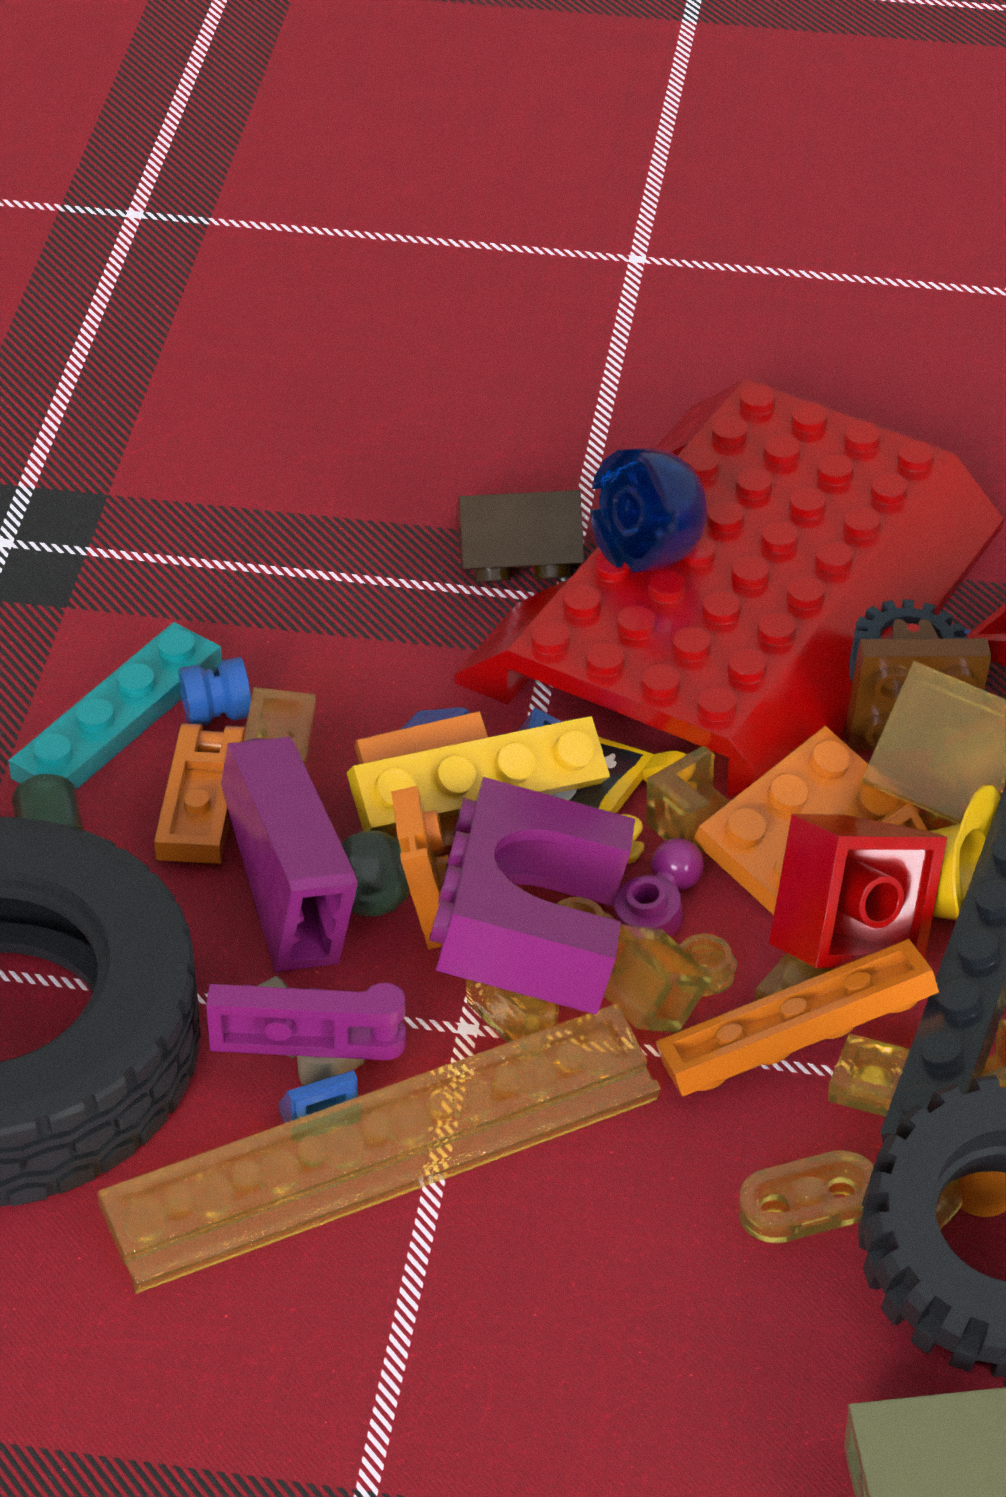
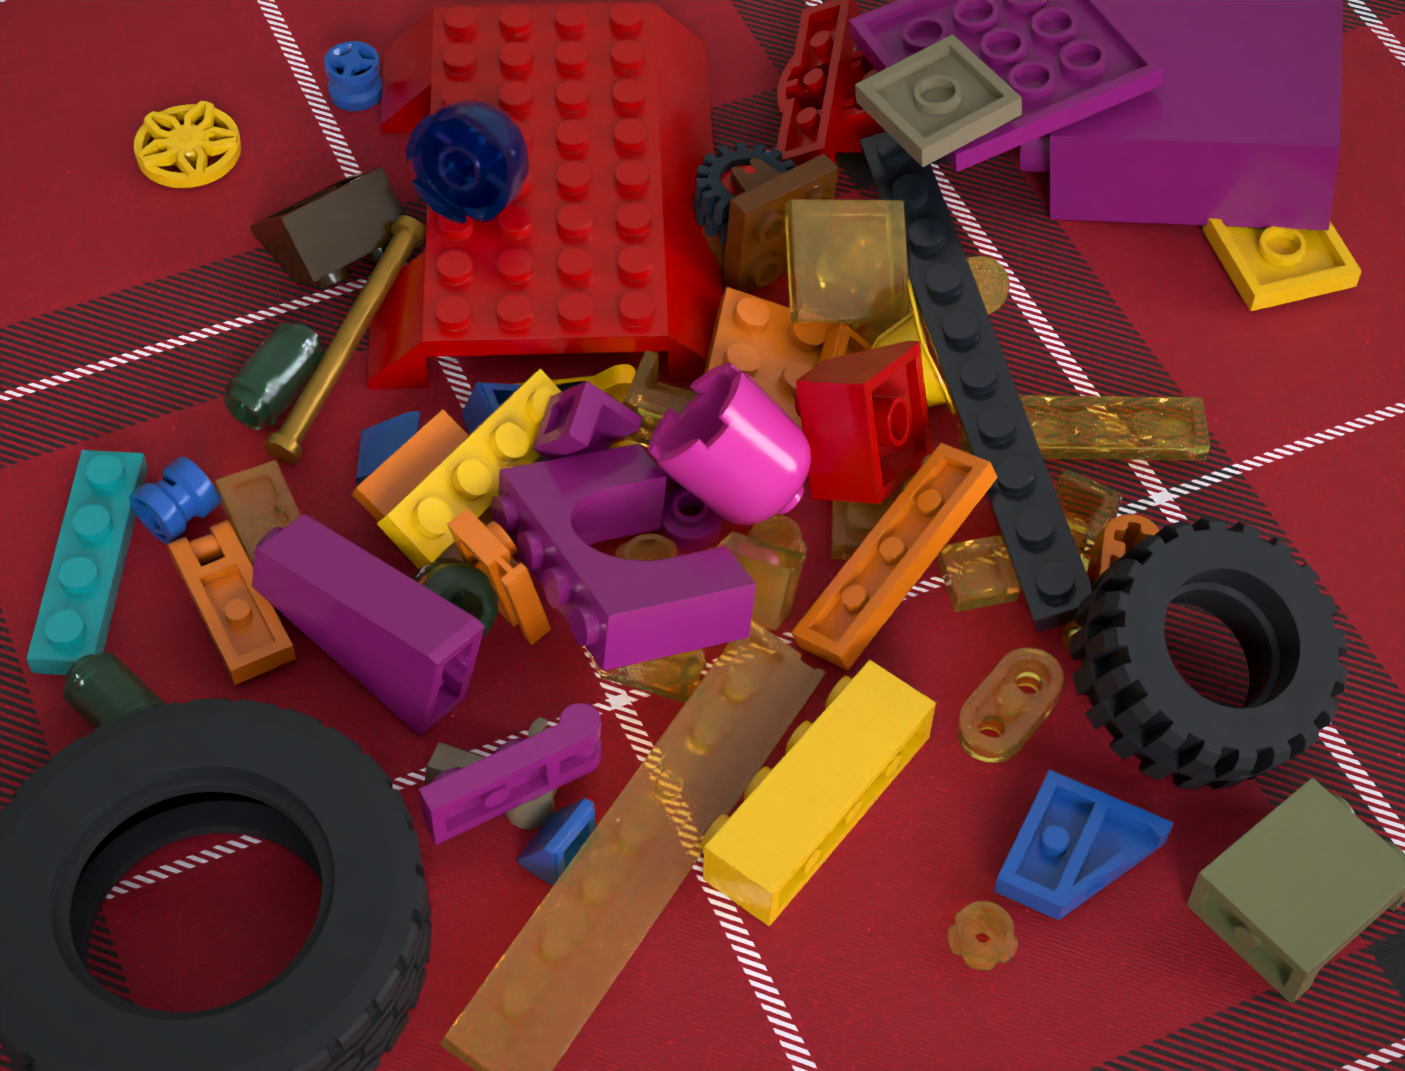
camera: 35 degrees left, 10 degrees up
(346, 690) = (286, 443): none -> pearl gold bar
(375, 631) = (273, 375): none -> clear green head
(454, 418) = (187, 145): none -> yellow wheel
(571, 1175) = (816, 791): none -> yellow brick
(593, 776) = (583, 422): none -> magenta panel
(628, 1350) = (987, 919): none -> clear yellow plate
(641, 414) = (353, 76): none -> blue wheel
(705, 858) = (734, 448): none -> dark pink cylinder
(769, 1338) = (1075, 846): none -> blue wing

